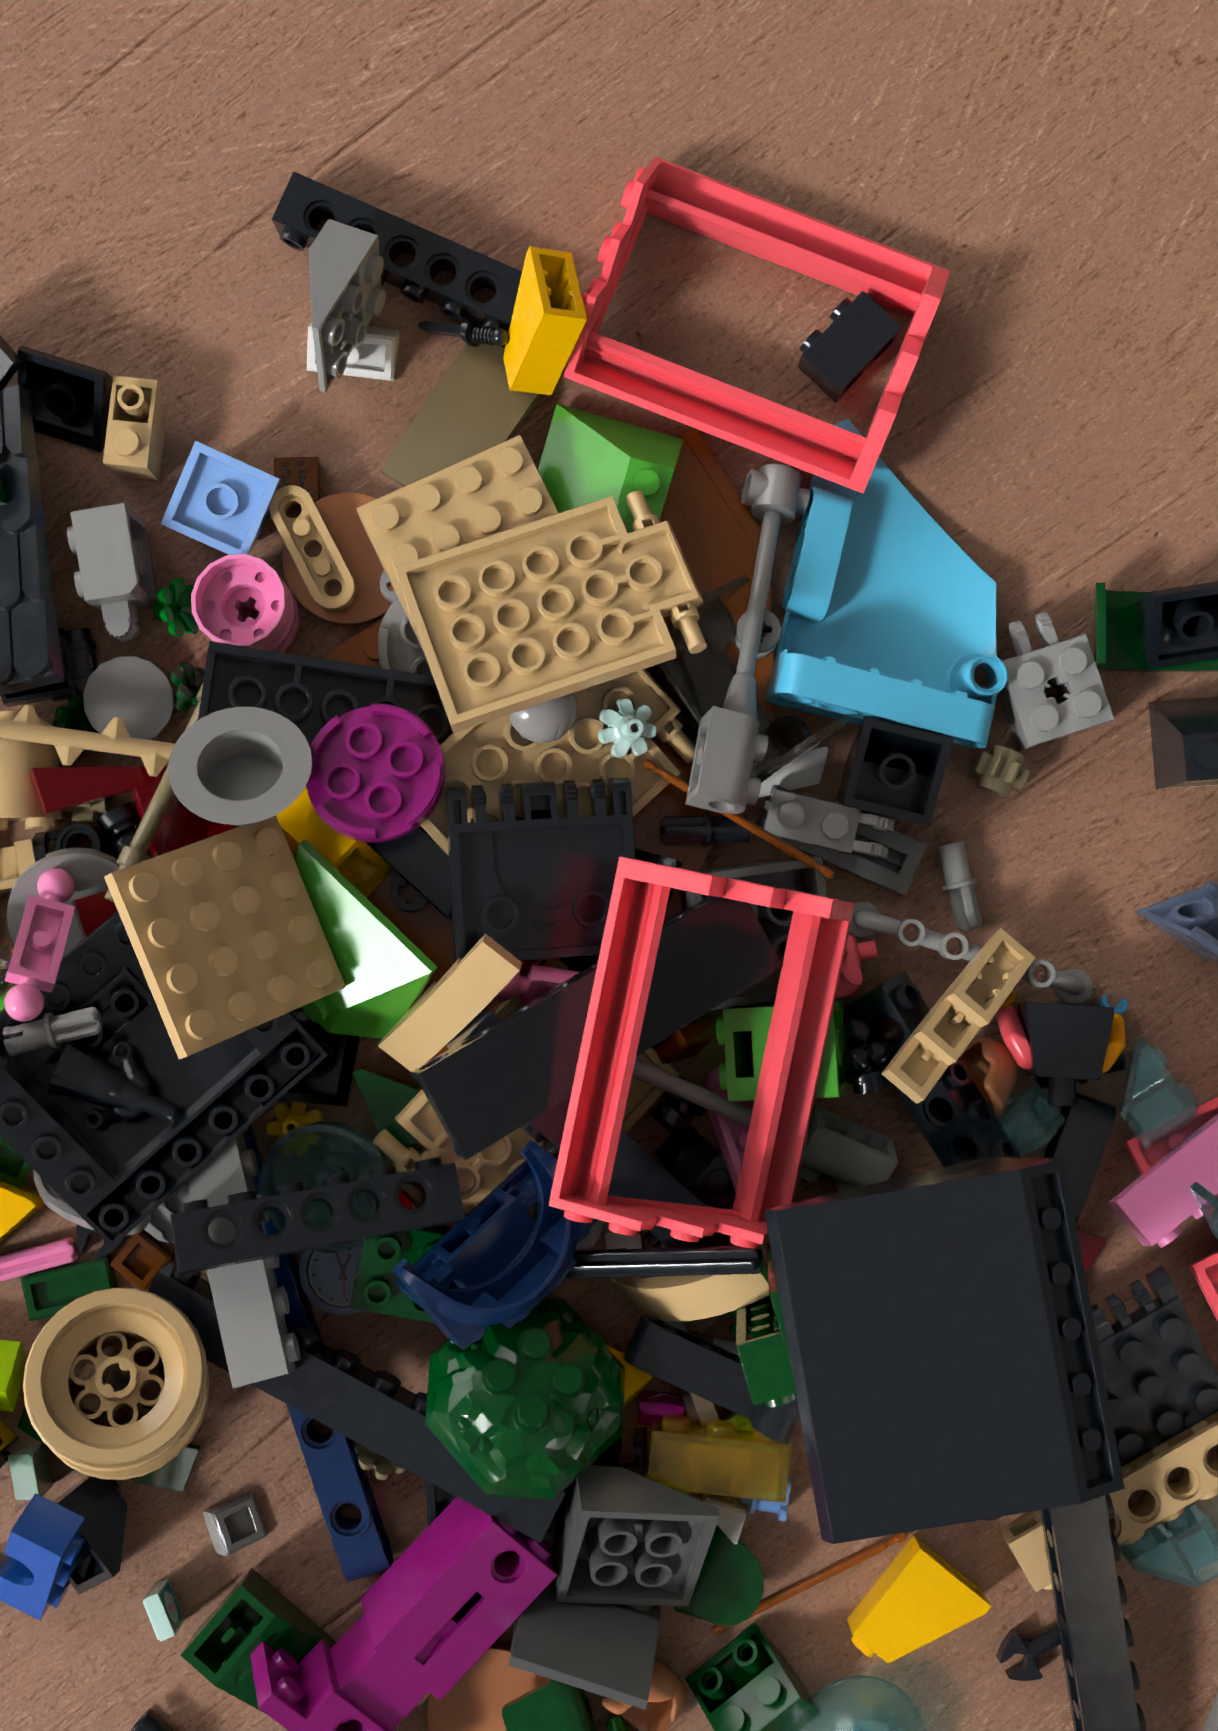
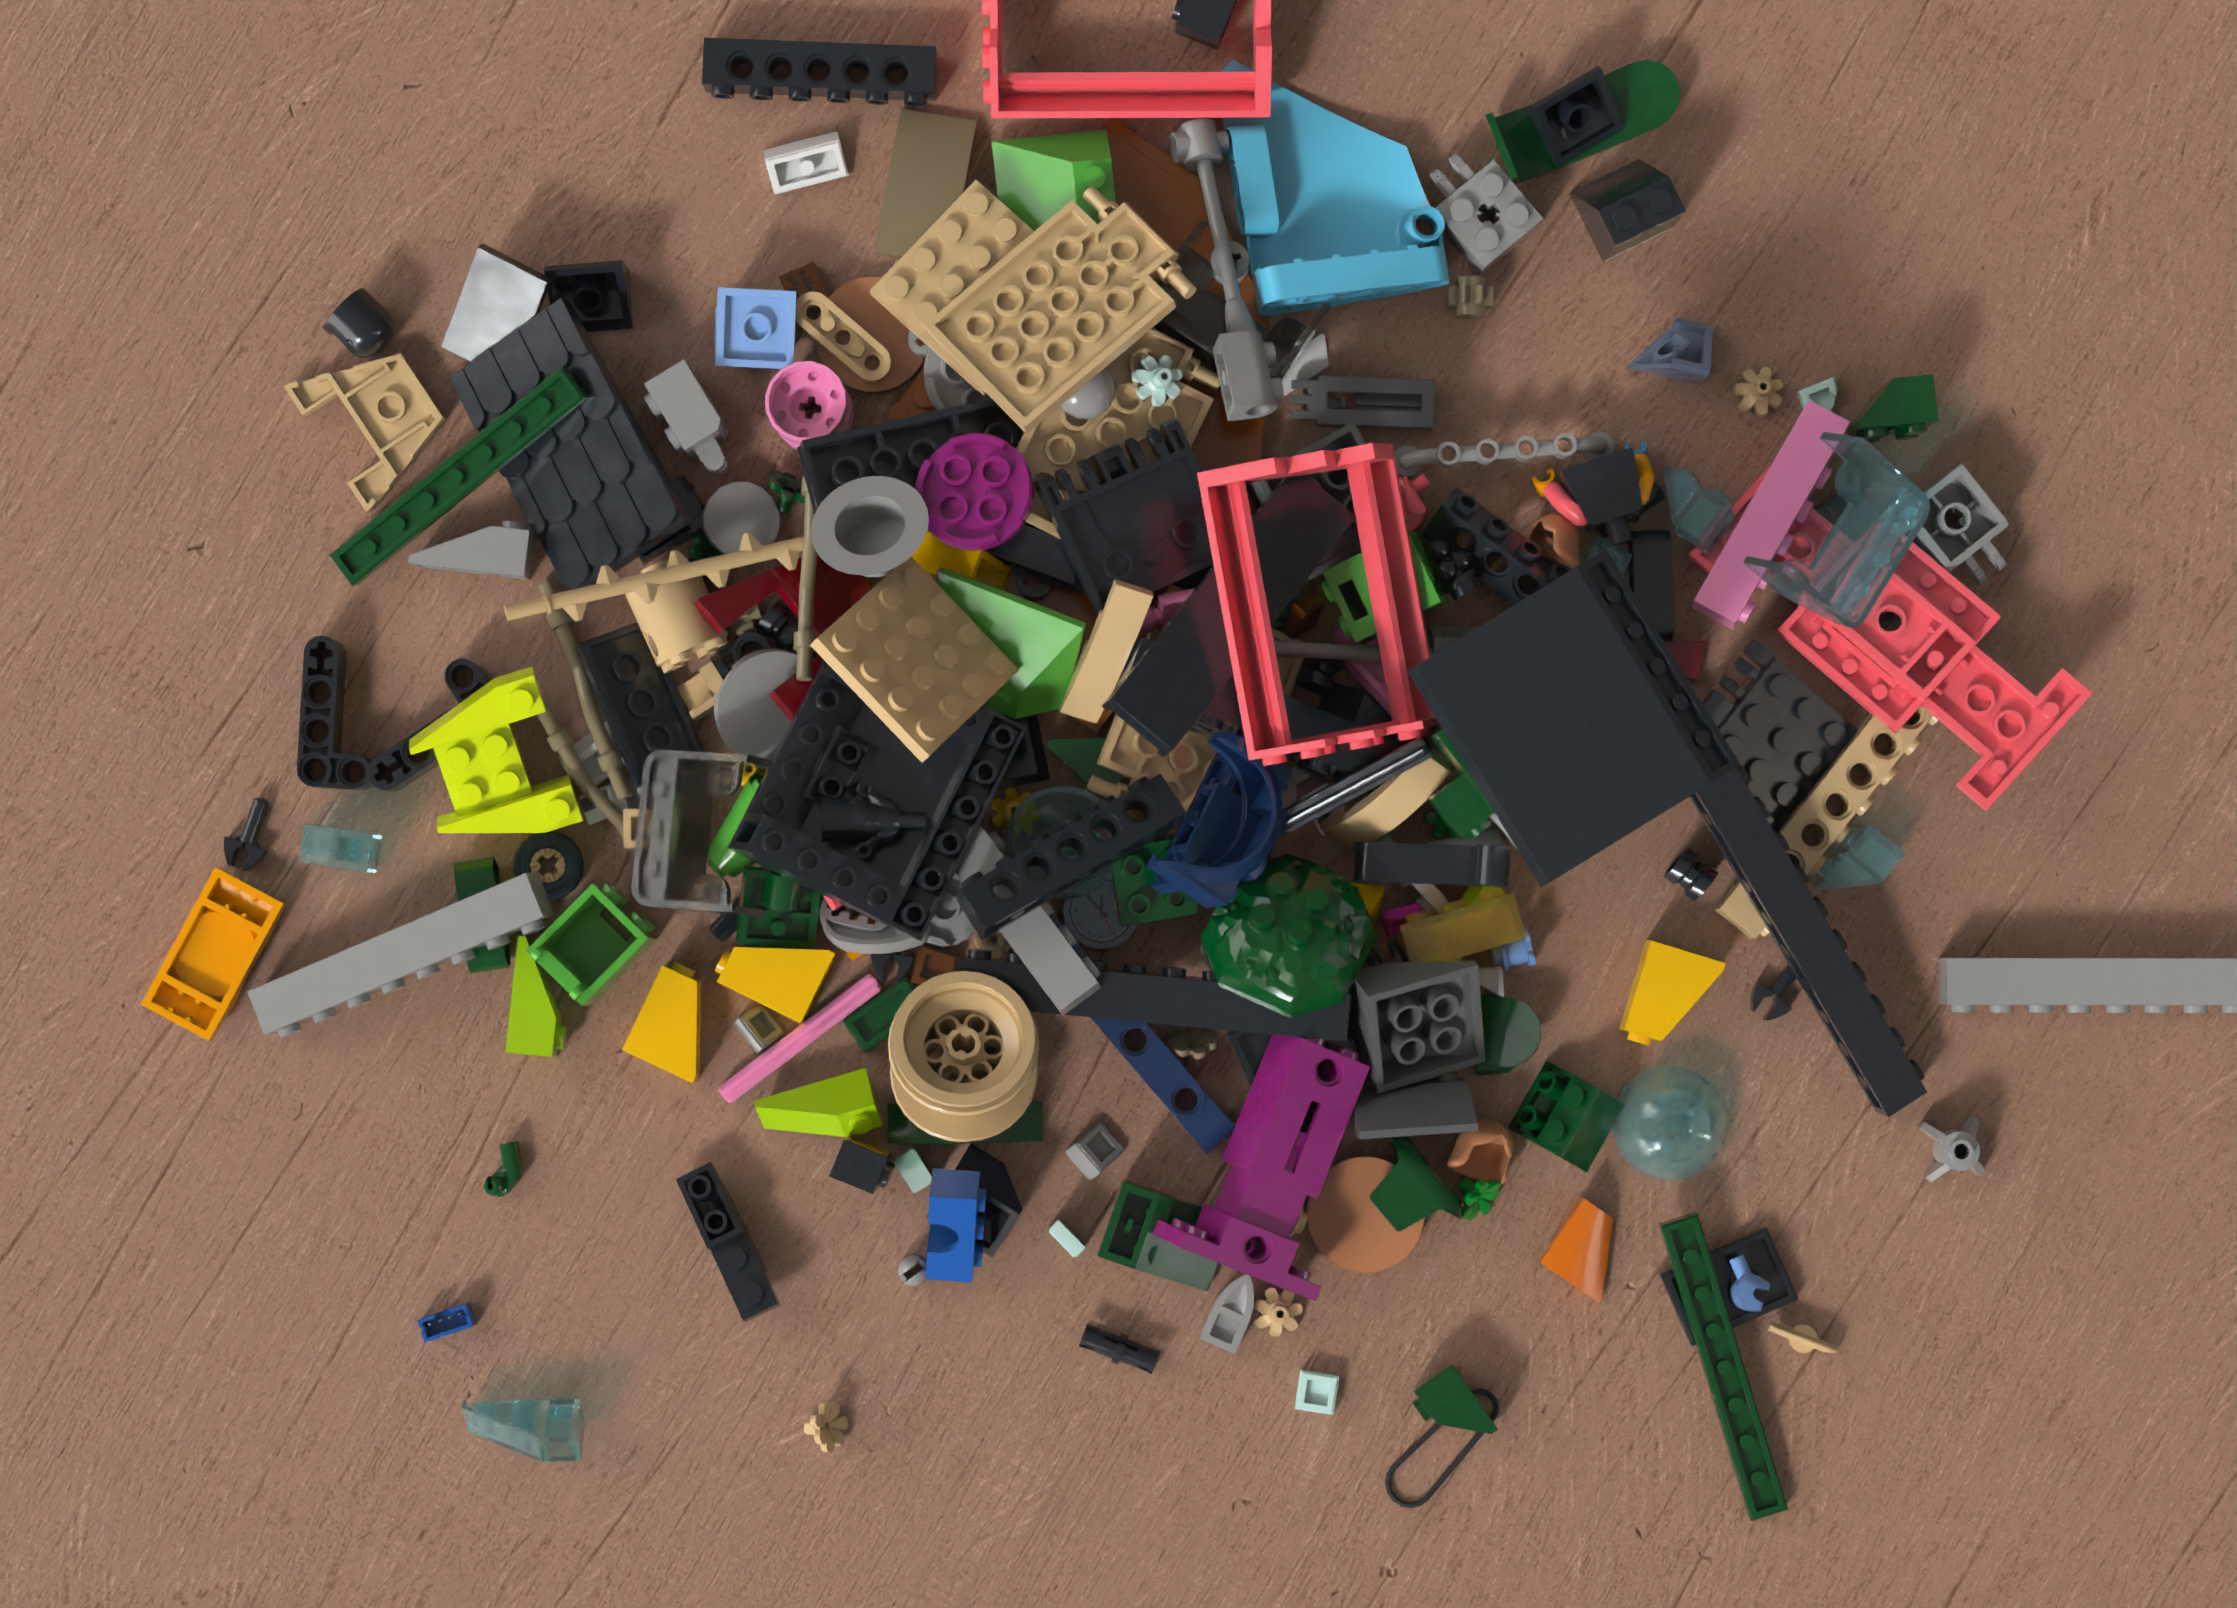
camera: 30 degrees left, 0 degrees up
(39, 945) = (764, 732): bright pink plate -> none
(52, 1031) = (805, 792): light grey axle -> none
(134, 429) = (657, 297): tan slope -> none
(176, 608) = (750, 430): green plant -> none
(343, 294) = (787, 123): light grey slope -> none
(469, 331) = (899, 111): black piece -> none
(543, 321) = (959, 80): yellow slope -> none
(702, 829) = (1251, 437): black axle -> none
(746, 823) = (1282, 418): dark orange piece -> none
(821, 1576) = (1577, 1011): dark orange piece -> none
(823, 823) = (1344, 395): light grey hinge -> none
(894, 771) = (1384, 329): black slope -> none
(958, 1015) = (1511, 502): tan slope -> none
(960, 885) = (1474, 402): light grey axle -> none

